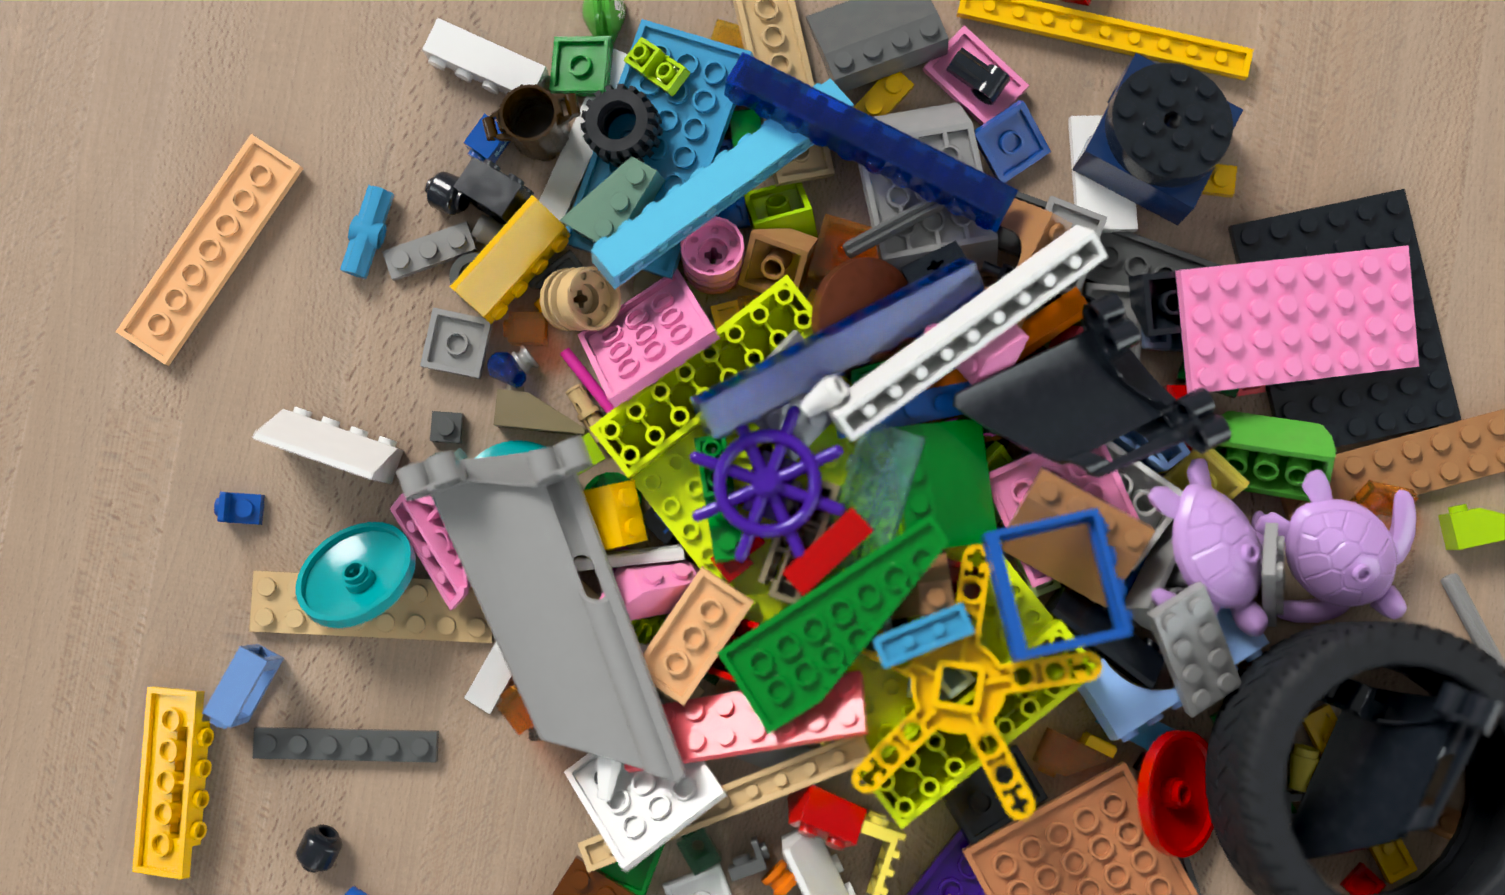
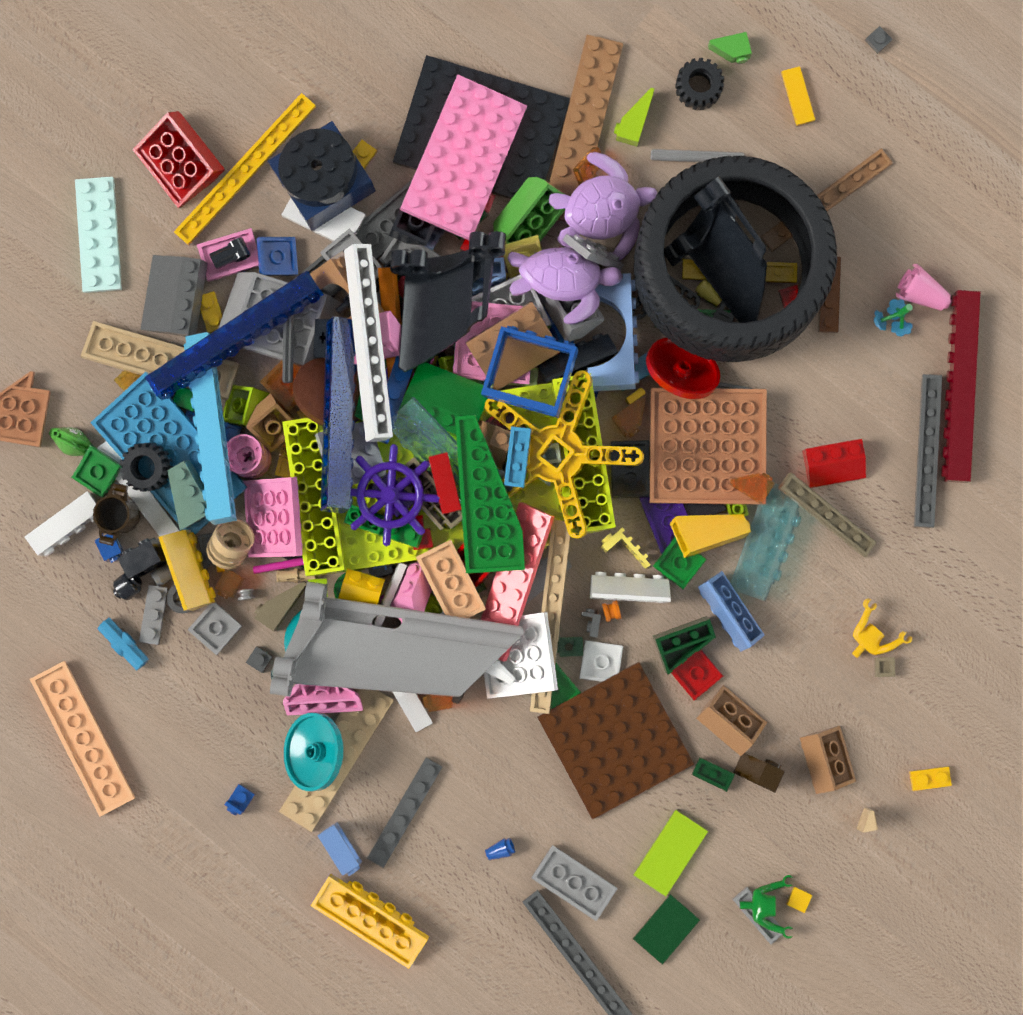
camera: 60 degrees left, 0 degrees up
(319, 848) = (453, 857): black head -> none
(332, 445) = (234, 727): white slope -> none
(506, 369) = (246, 607): clear blue cone -> none
(657, 66) = (123, 429): lime slope -> none
(824, 395) = (360, 437): white cone -> none
(825, 816) = (588, 565): red slope -> none
(1194, 648) = (608, 316): light grey plate -> none

